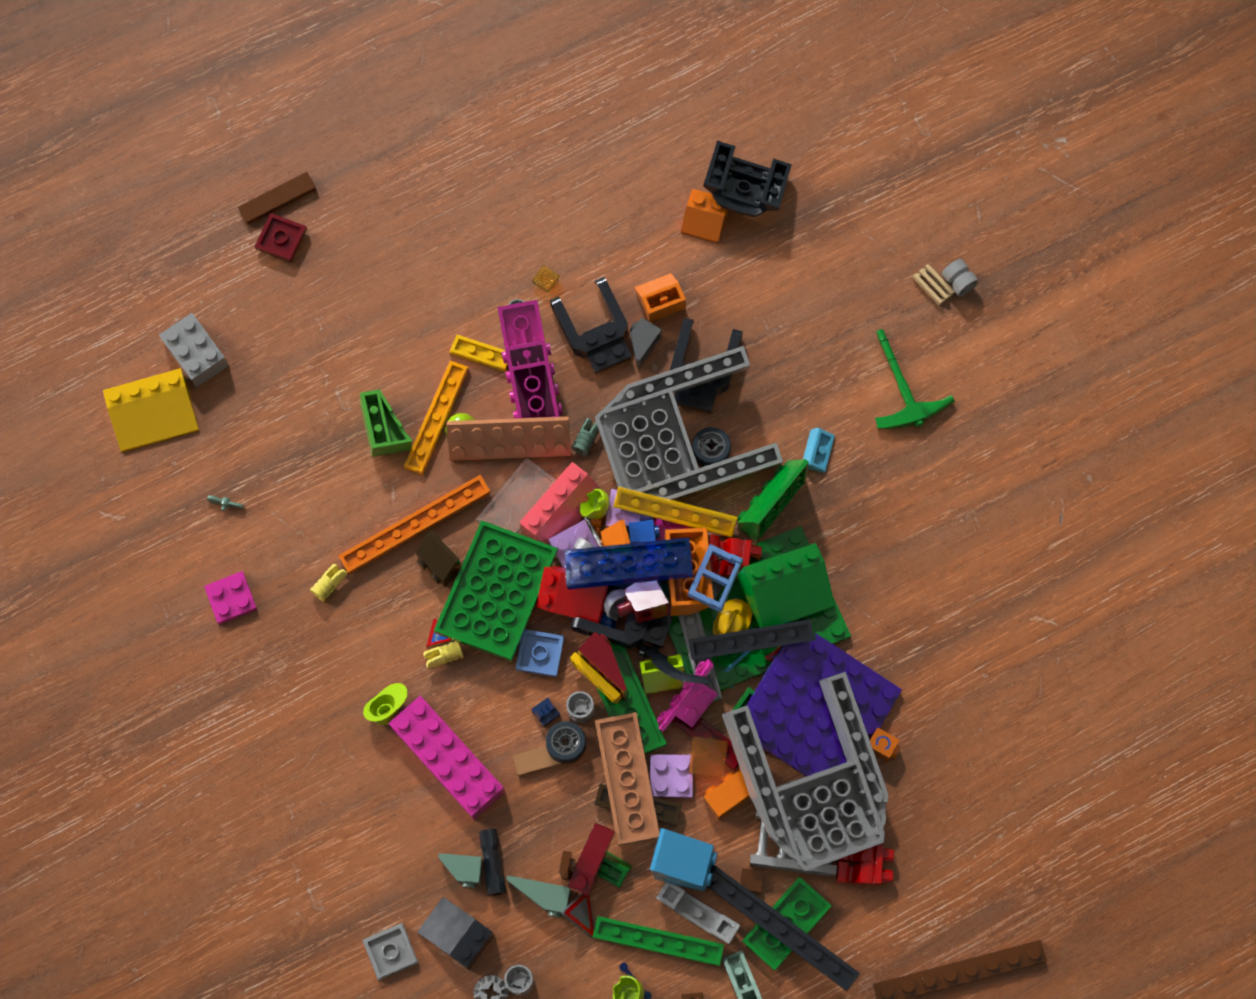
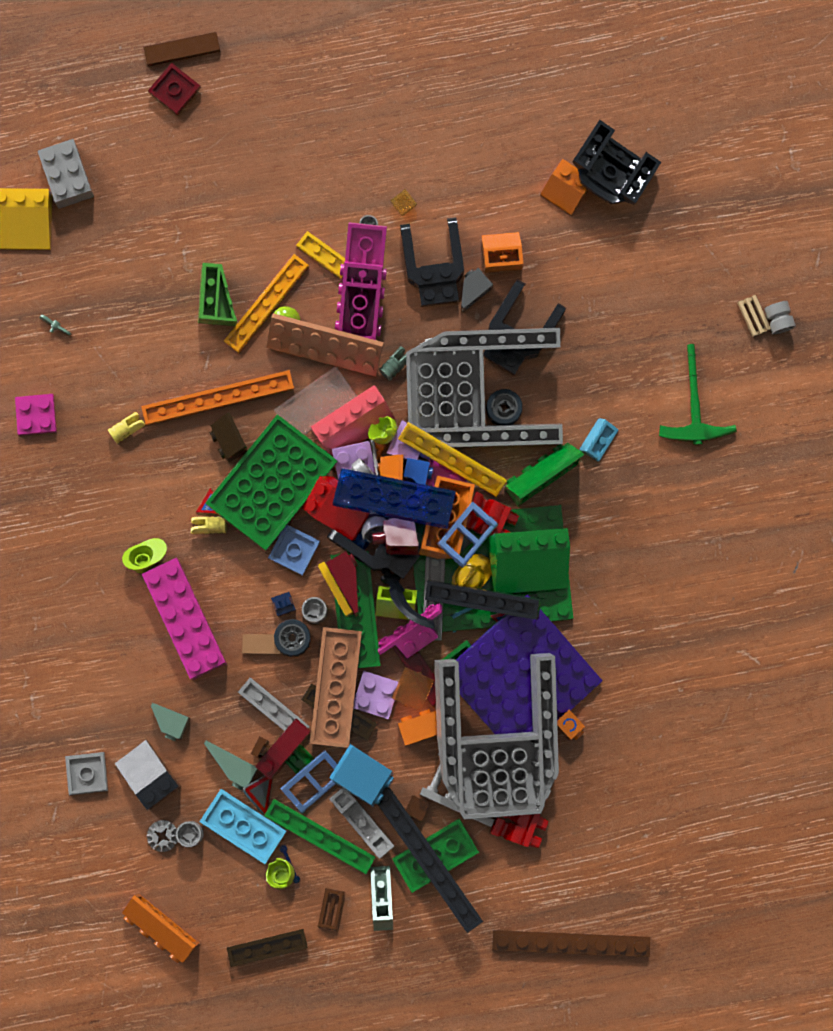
camera: 10 degrees right, 10 degrees up
(490, 849) = (199, 707): black axle -> none
(560, 819) = (268, 704): none -> light grey plate
(573, 955) = (243, 826): none -> medium azure plate
(622, 877) = (305, 772): none -> medium blue window

